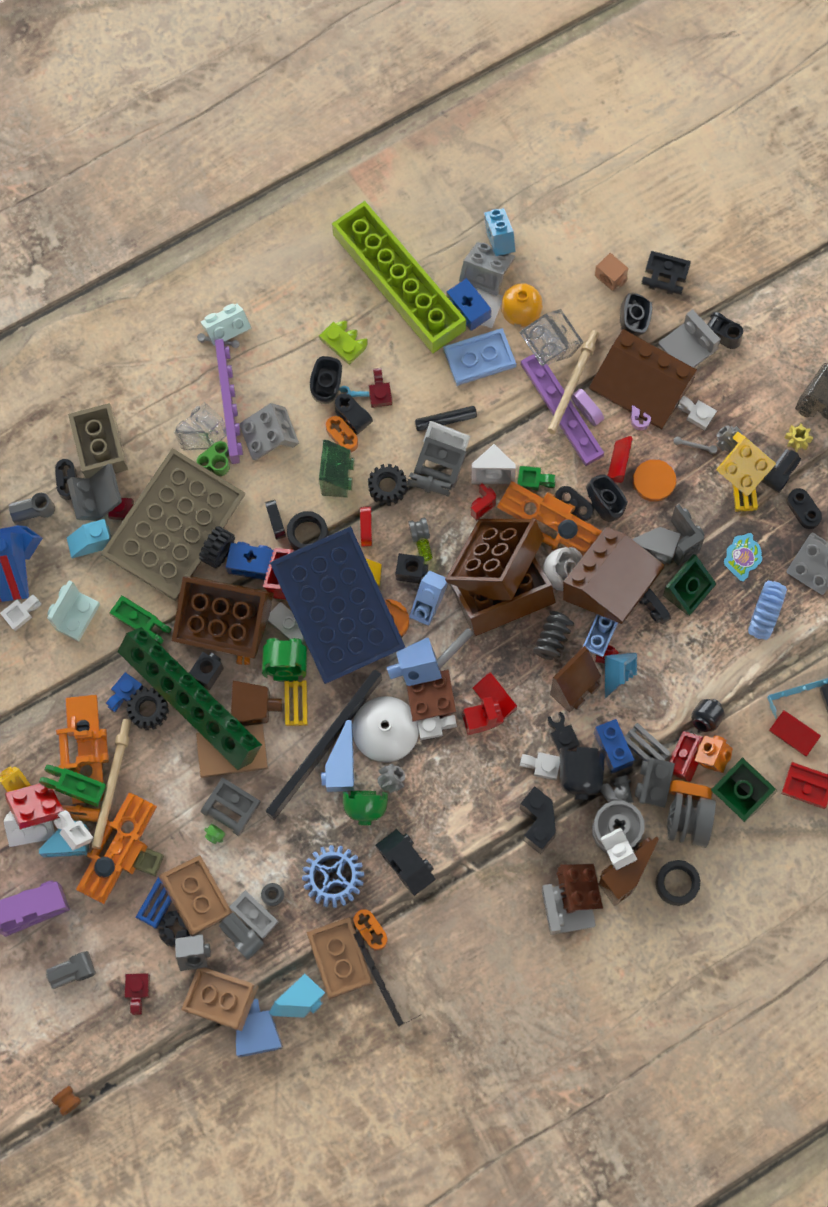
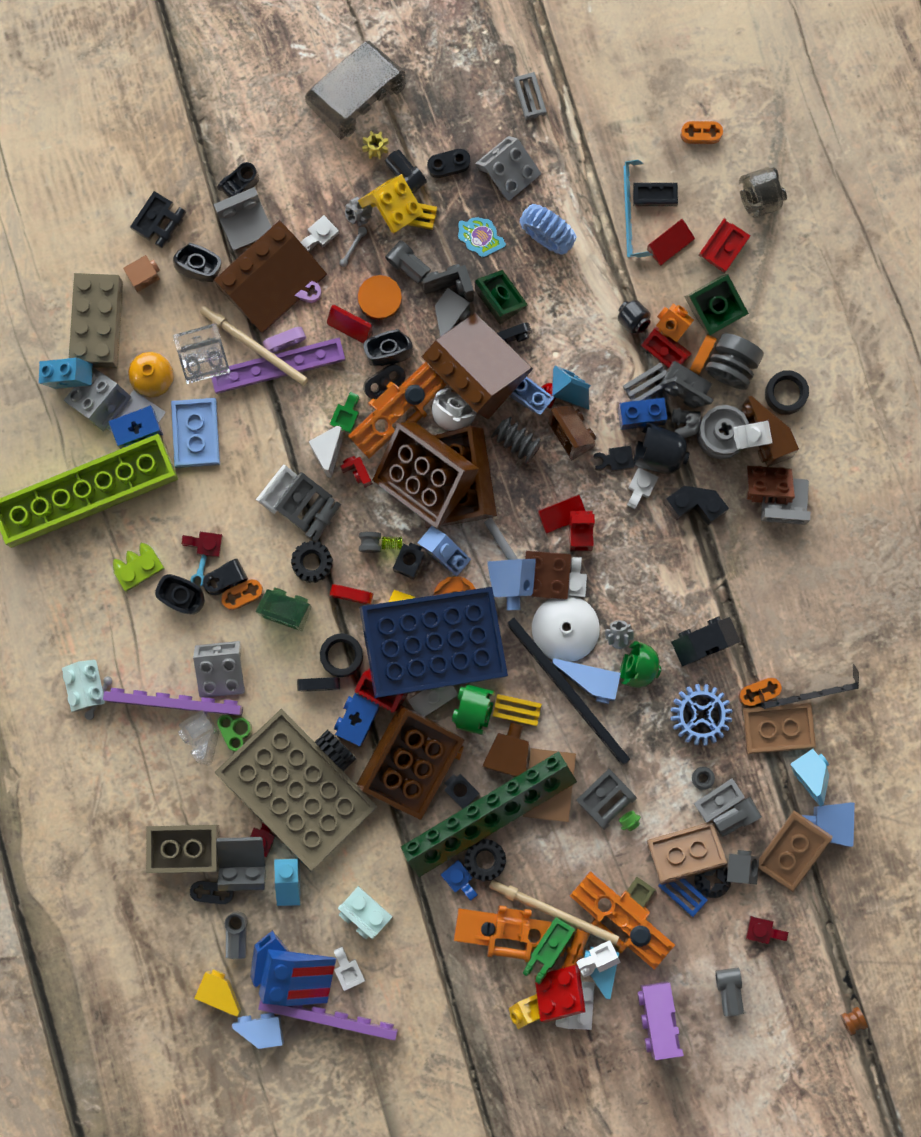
camera: 80 degrees left, 10 degrees up
(137, 617) = (386, 849): green hinge -> none
(447, 417) = (254, 486): black axle -> none
(557, 245) = (96, 319): none -> dark tan brick
(697, 491) = (403, 258): none -> dark grey piece

